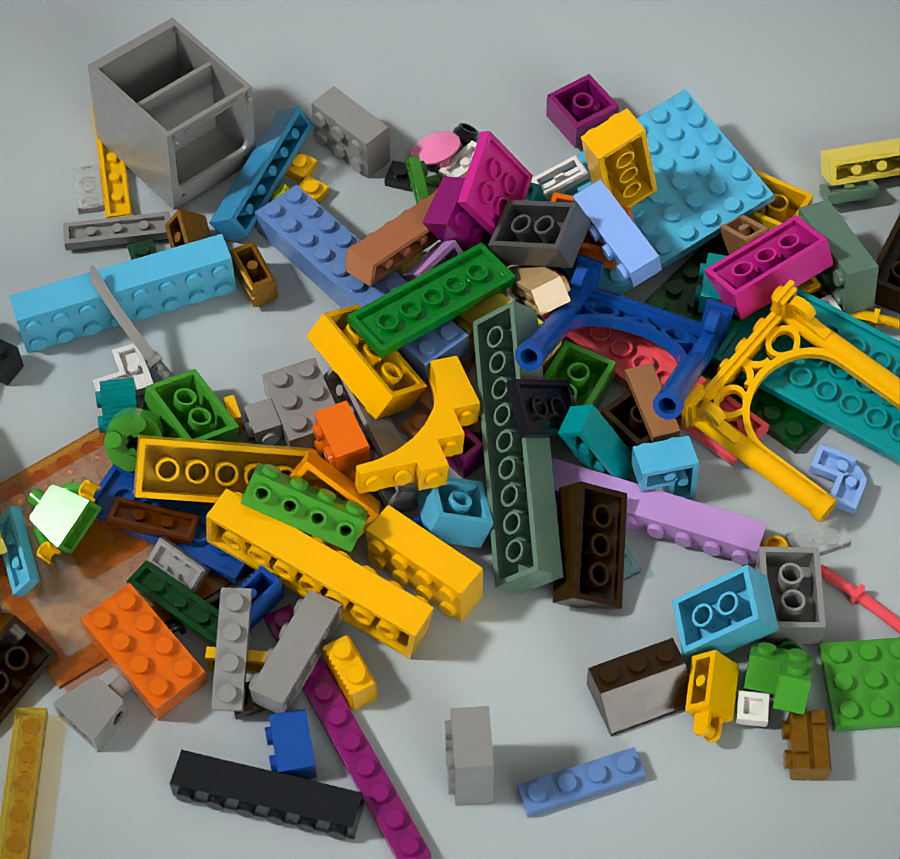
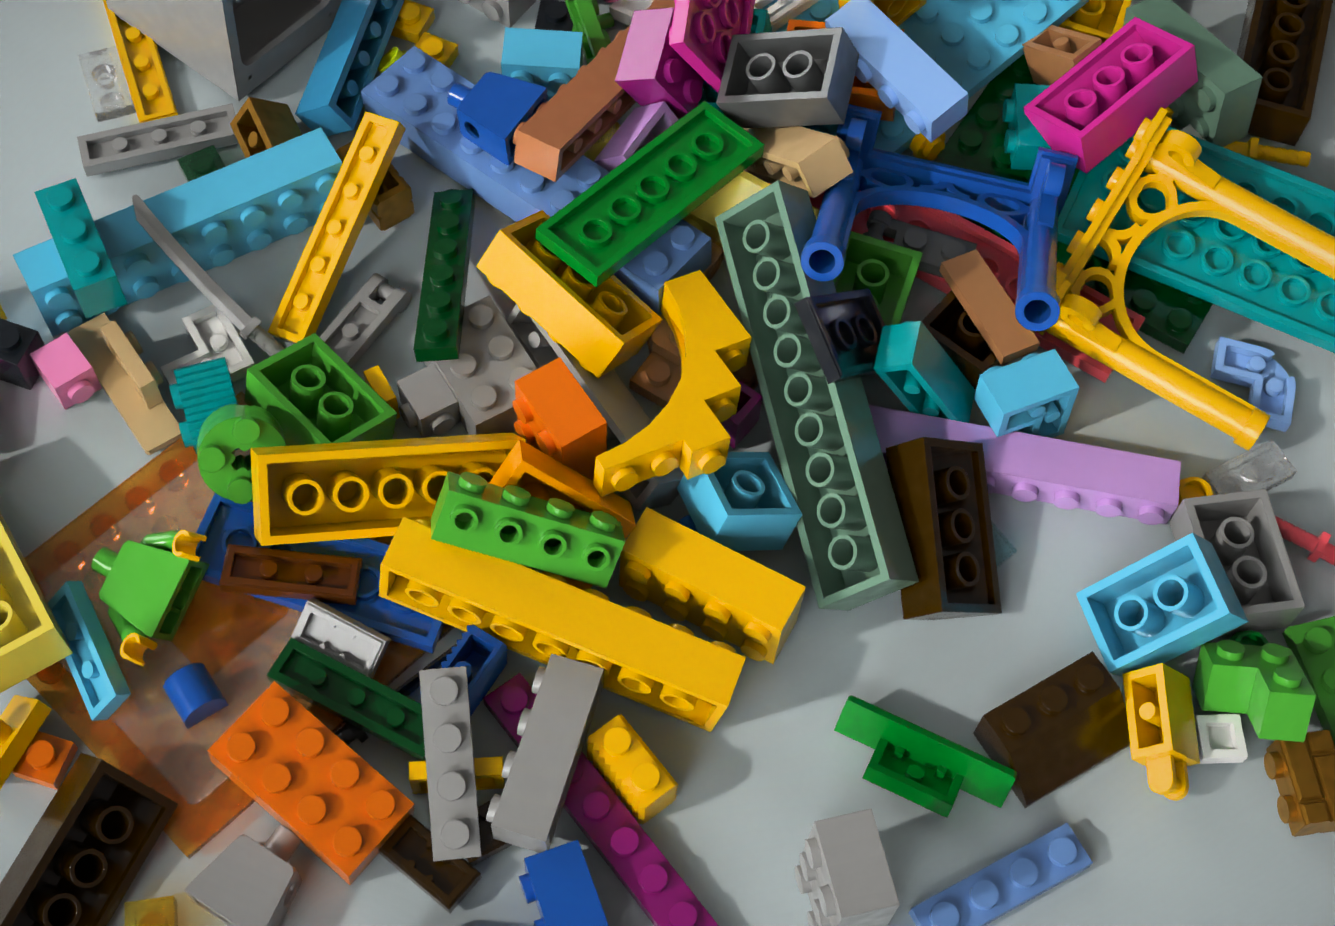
camera: 15 degrees left, 5 degrees up
(31, 375) = (66, 371): none -> bright pink brick
(52, 296) = (80, 248): none -> teal brick
(70, 386) = (128, 381): none -> tan bracket
(79, 587) = (194, 694): none -> blue brick
(216, 724) = (412, 854): none -> dark brown plate
(222, 301) = (337, 228): none -> yellow plate
(231, 364) = (364, 318): none -> light grey plate
(288, 340) = (445, 276): none -> dark green plate
(337, 233) = (494, 110): none -> blue torso
(376, 204) = (542, 56): none -> medium azure brick
(544, 695) = (921, 762): none -> green bracket
(623, 356) = (934, 245): none -> dark grey plate
(643, 290) = (927, 150): none -> yellow plate

